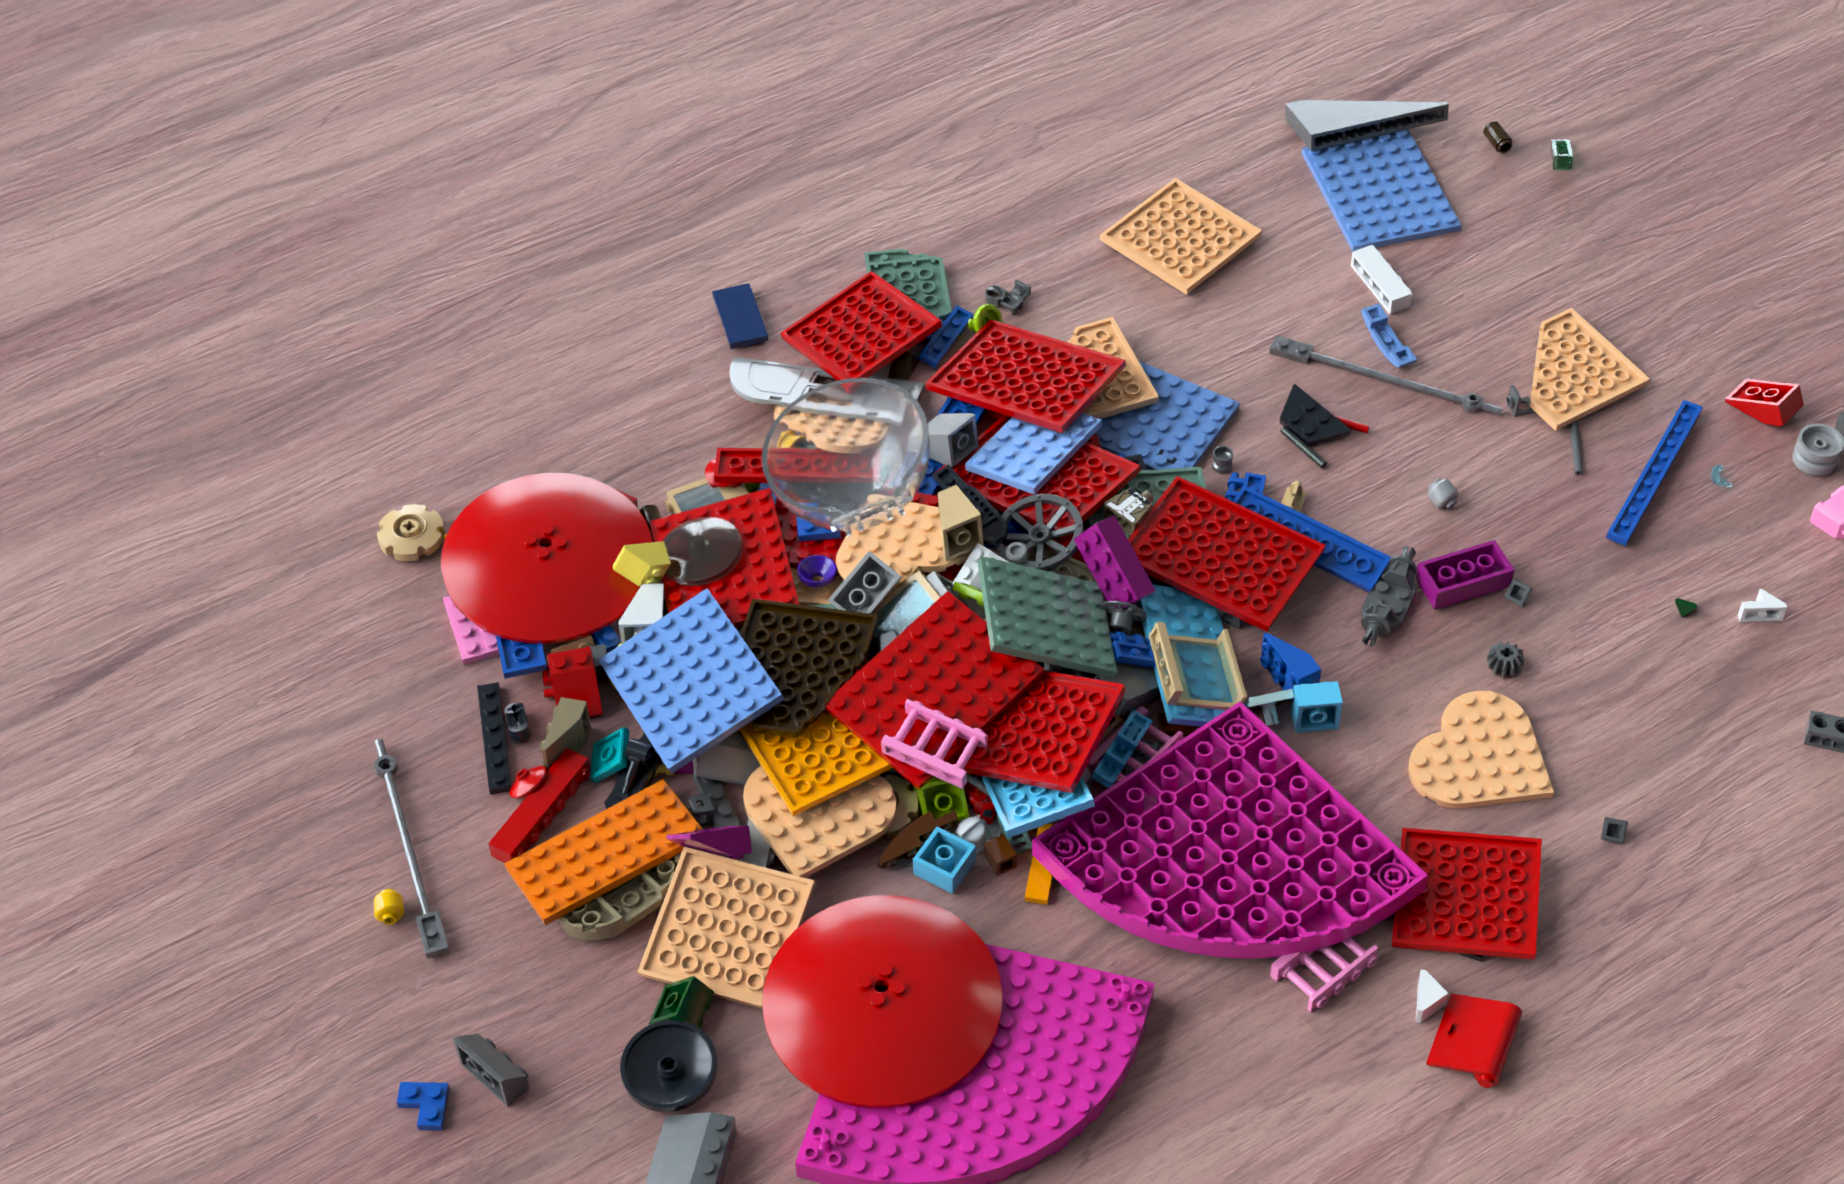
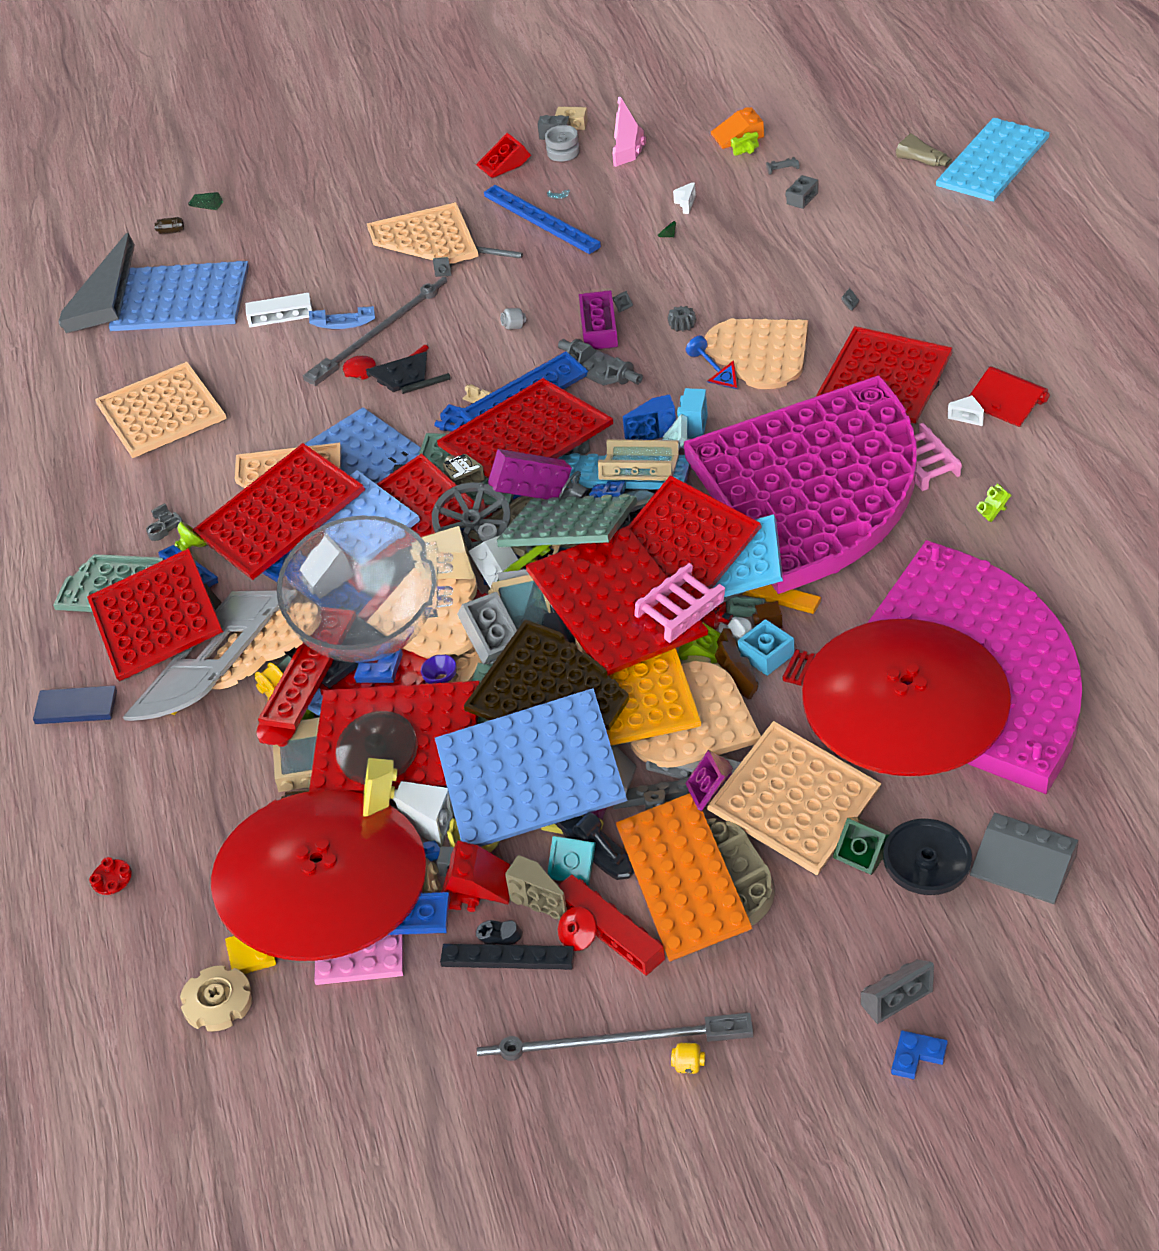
camera: 70 degrees left, 5 degrees down
(538, 413) = (110, 876): none -> red dish
(937, 897) = (803, 656): none -> red tile
(1222, 459) = (418, 425): flat silver wheel -> none
(1252, 1048) = (994, 502): none -> lime hips
(1311, 379) = (357, 366): none -> red dish
(1411, 728) = (725, 376): none -> blue piece

